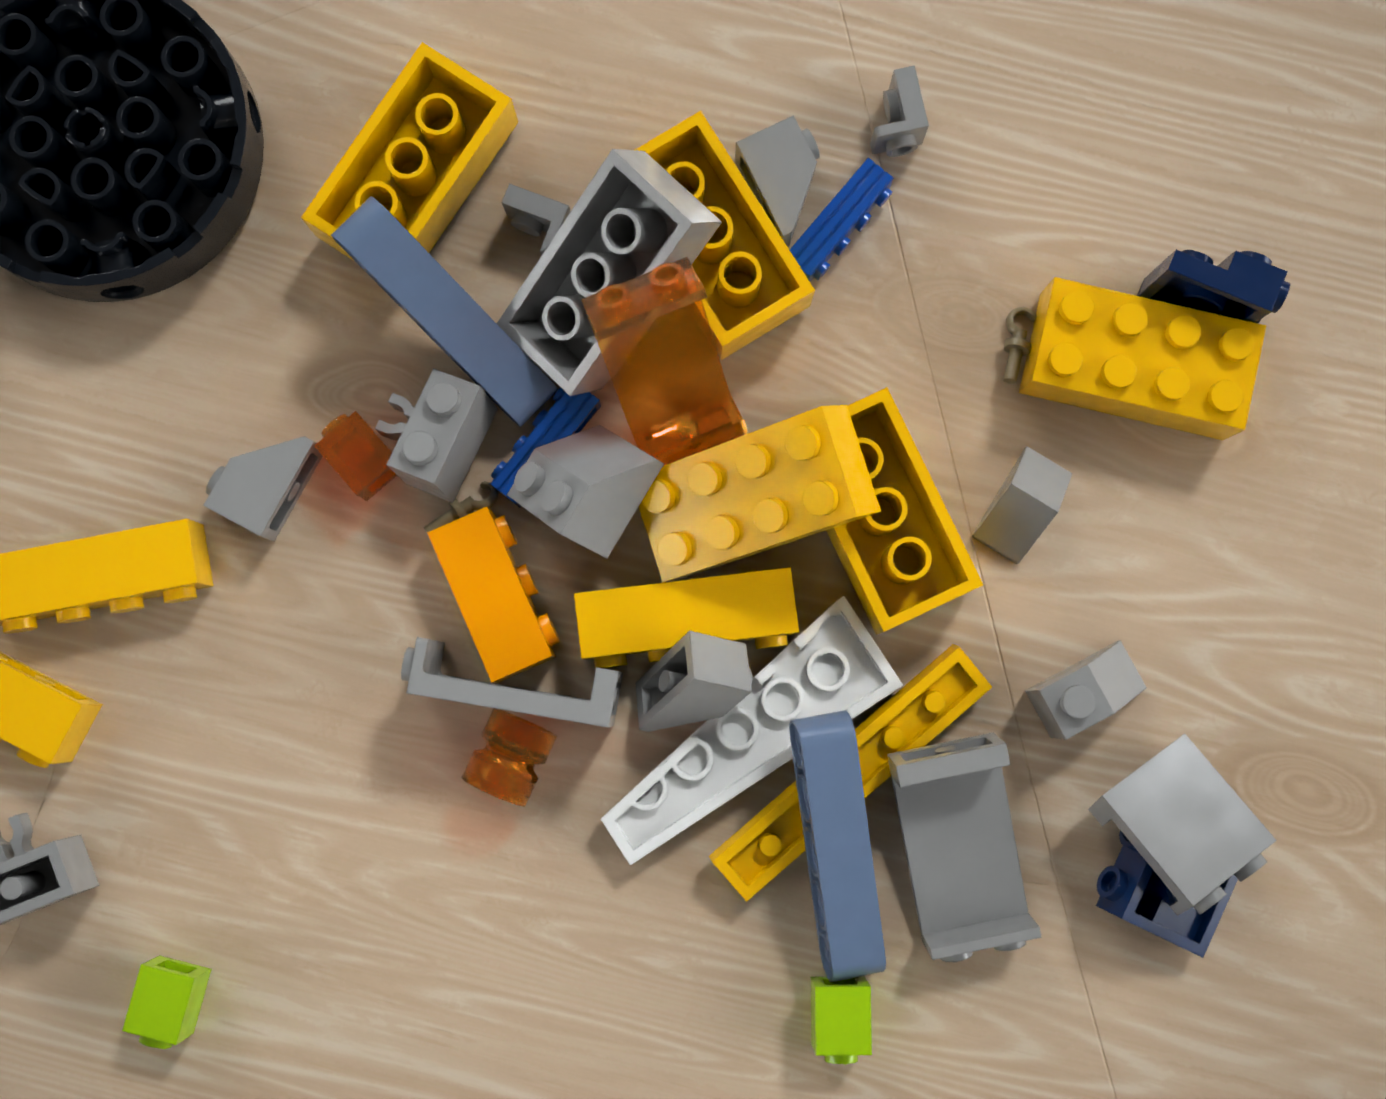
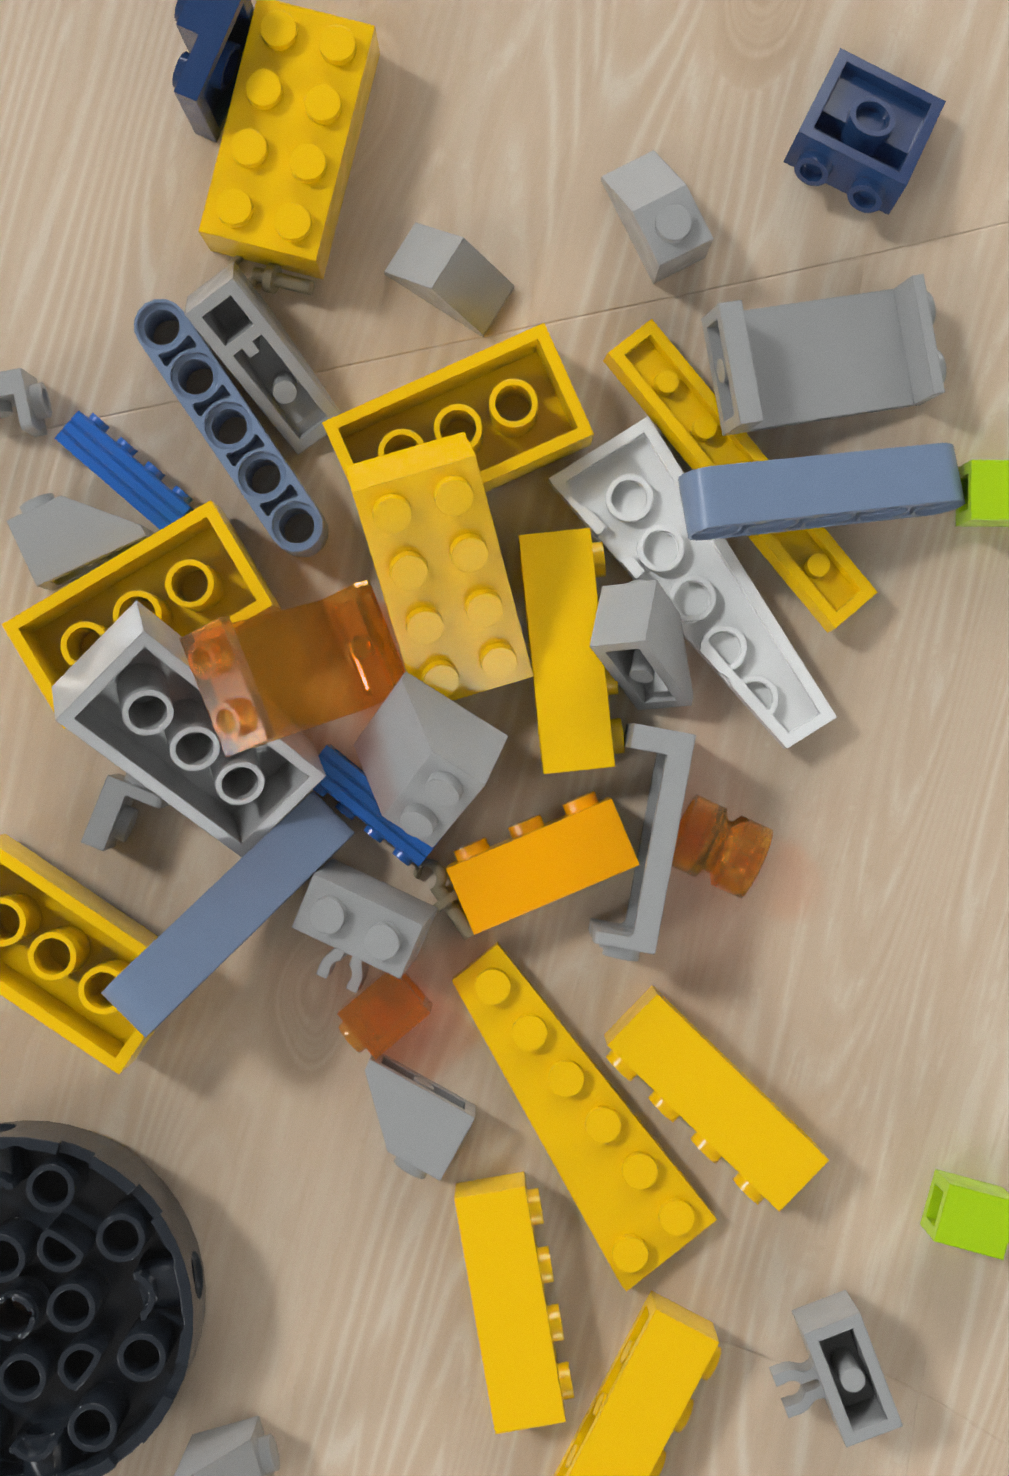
camera: 85 degrees left, 5 degrees up
(228, 658) = (603, 1152): none -> yellow wing
(275, 758) = (714, 1098): none -> yellow brick
(895, 292) = (215, 406): none -> sand blue beam
(947, 336) = (261, 356): none -> light grey slope
(1186, 825) = (807, 111): light grey panel -> none

